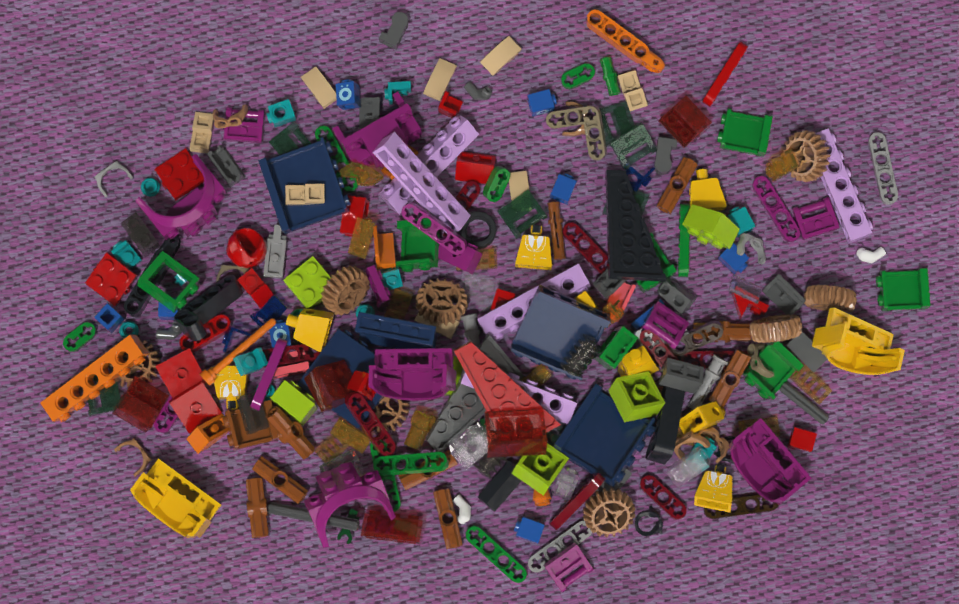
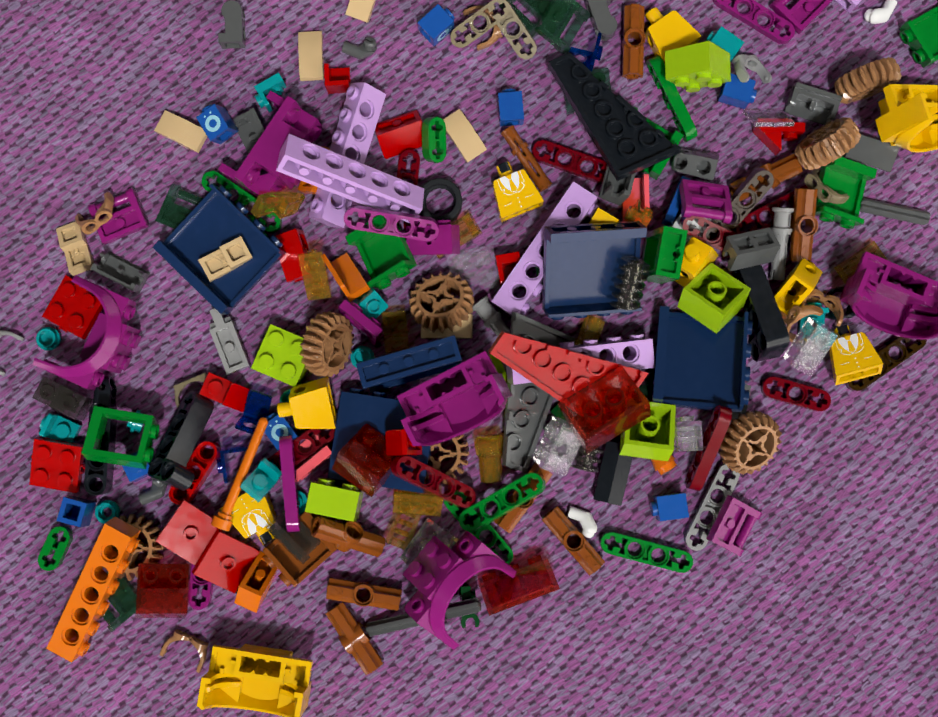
camera: 25 degrees left, 5 degrees up
(246, 248) = (191, 353): red piece -> none
(281, 106) = (150, 172): teal brick -> none
(517, 209) = (472, 154): clear green plate -> none
(650, 513) = (805, 432): black piece -> none
(800, 383) = (875, 186): clear yellow slope -> none
(802, 439) = (915, 252): red panel -> none

